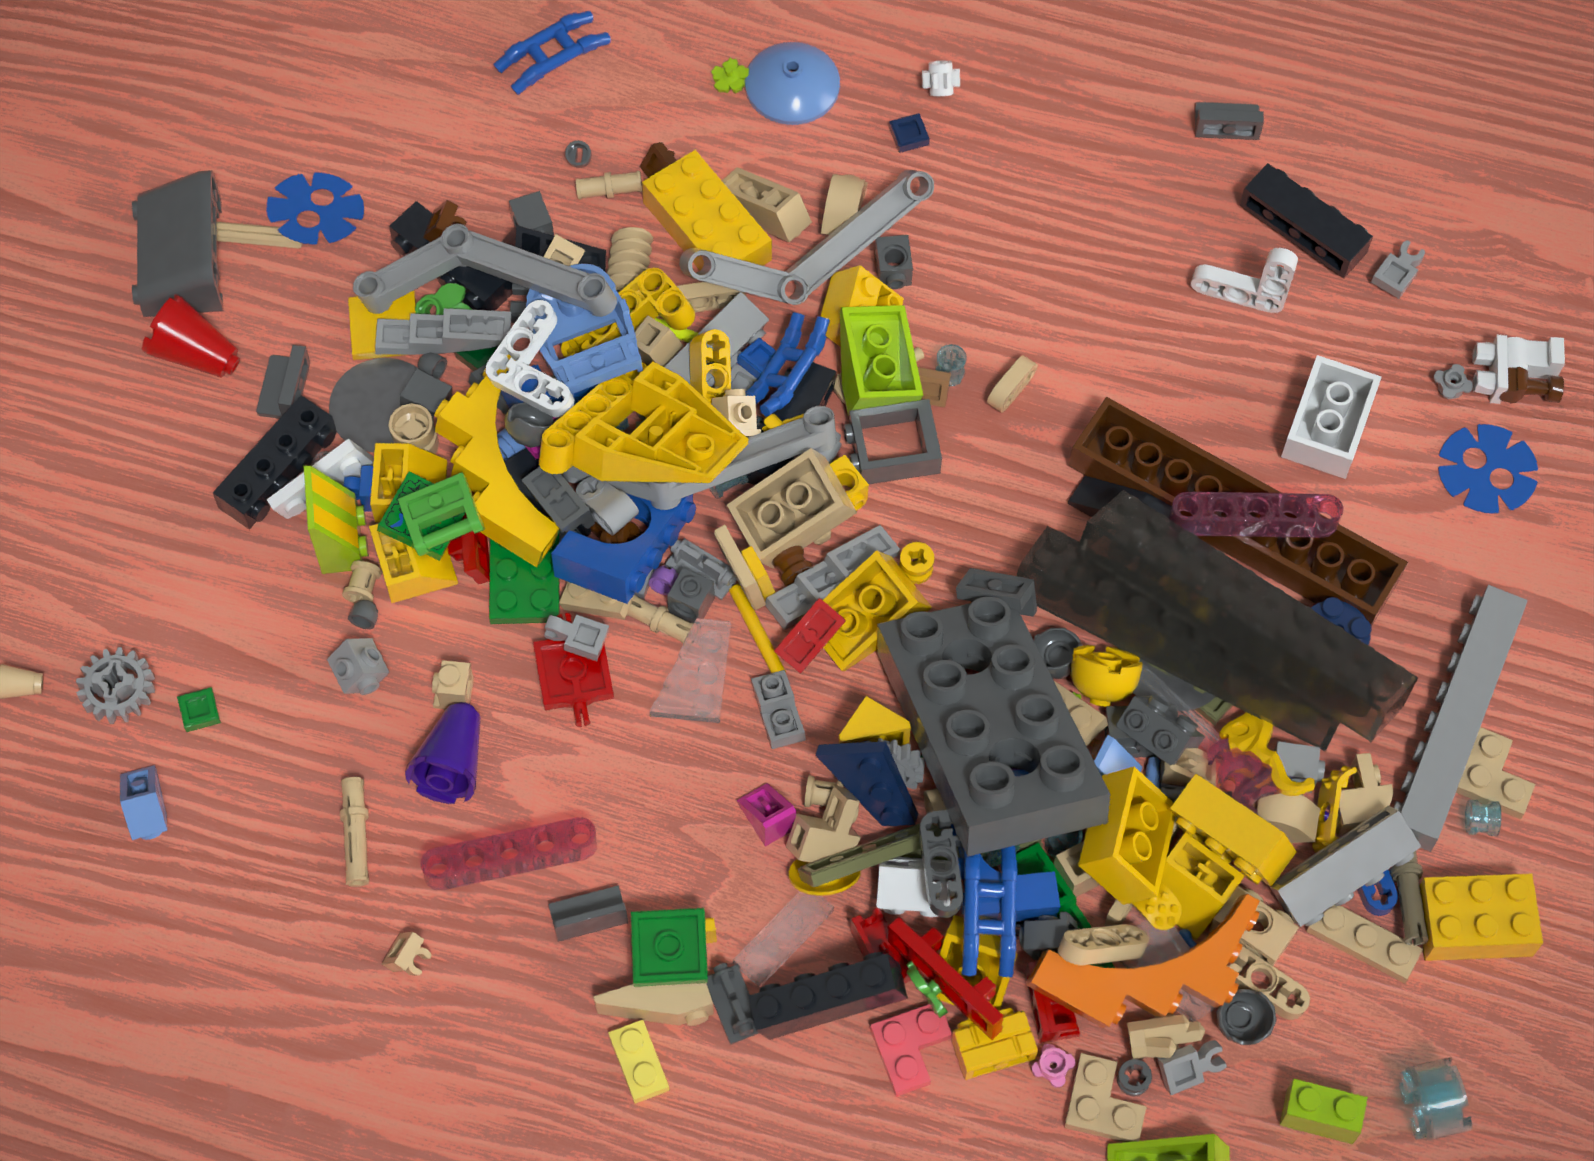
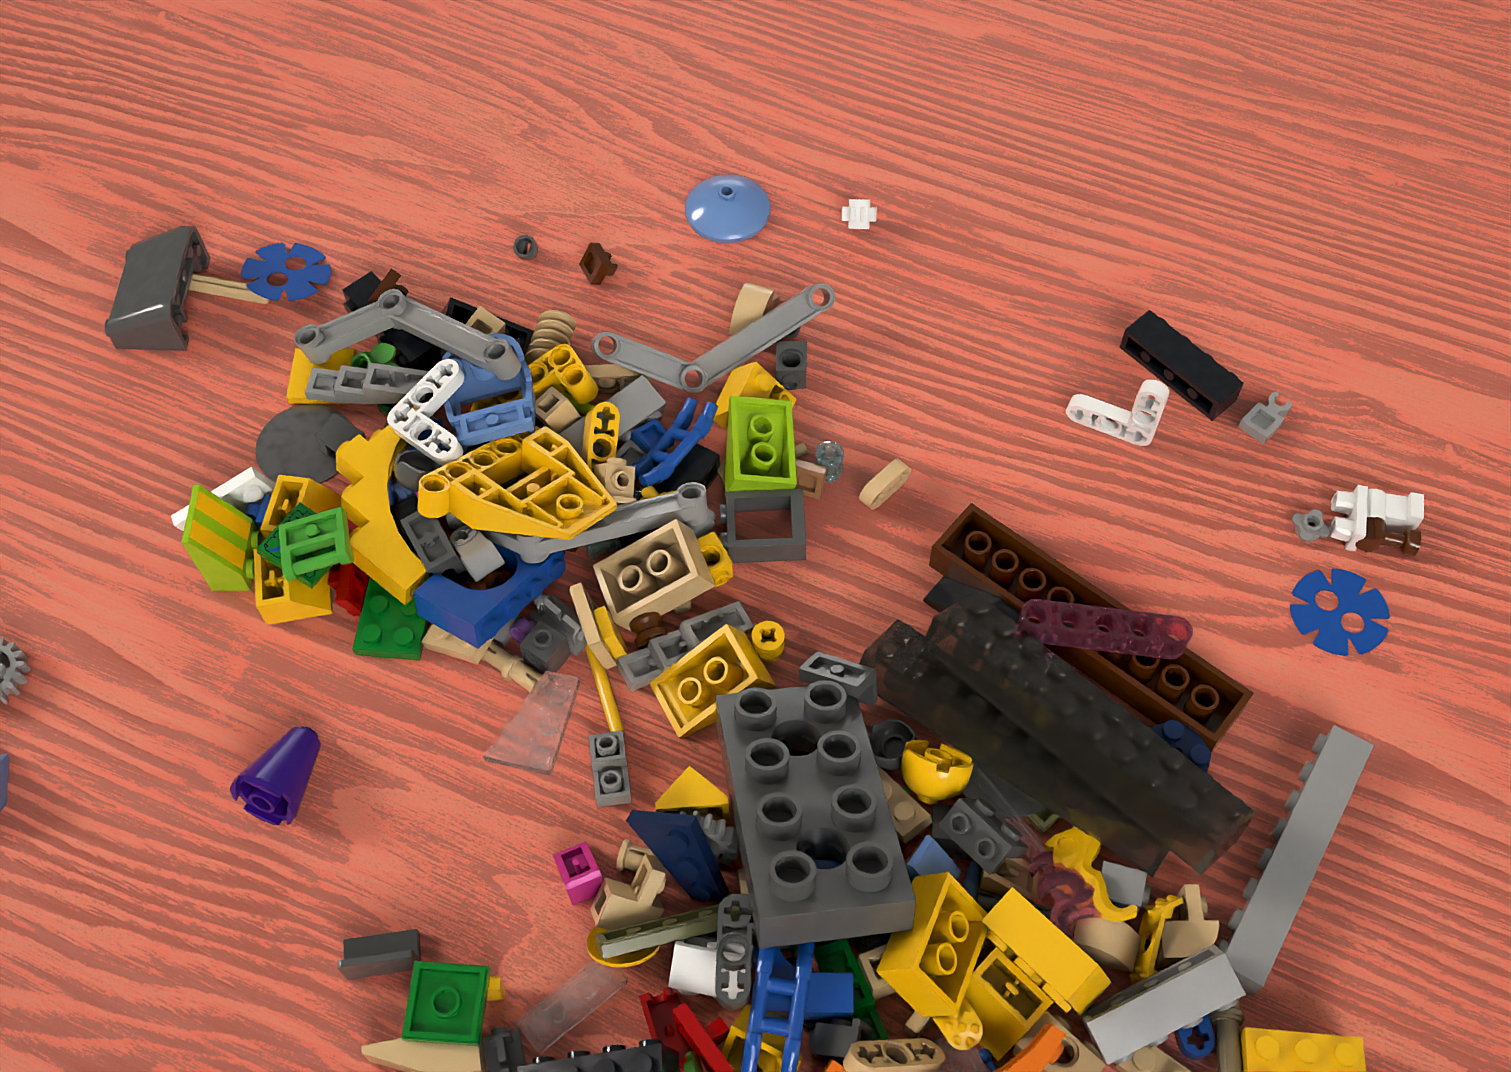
camera: 10 degrees right, 5 degrees down
(190, 340) = (141, 368): red cone -> none
(198, 709) = (62, 705): green tile -> none
(275, 461) = (207, 466): black brick -> none
(283, 382) = (221, 418): dark grey panel -> none
(354, 821) = (173, 849): tan pin -> none
(358, 666) = (216, 680): light grey brick -> none
(361, 581) = (240, 603): tan bush -> none
(364, 614) = (237, 632): dark grey hinge -> none
(403, 952) = (188, 974): tan tile -> none
(414, 426) = (319, 464): tan wheel -> none
(432, 364) = (356, 414): dark grey hinge -> none
(452, 684) = (297, 705): tan brick -> none
(492, 847) = (301, 875): clear pink beam -> none
(531, 213) = (471, 290): dark grey brick -> none
(543, 63) = (511, 171): blue piece -> none
(571, 678) = (420, 707): red plate -> none
(581, 637) = (430, 676): light grey plate -> none
(609, 185) = (547, 276): tan pin -> none
(704, 212) = (626, 305): yellow brick -> none
(730, 76) = (673, 198): lime plant -> none
(770, 204) = (685, 304): tan slope -> none
(810, 635) = (649, 699): red hinge -> none
(909, 133) = (824, 258): dark blue tile -> none
(1228, 121) = (1117, 274): dark grey panel -> none
(1331, 417) = (1188, 545): white brick -> none
(1483, 817) = (1312, 967): clear light blue wheel -> none
(1487, 782) = (1320, 931): tan plate -> none

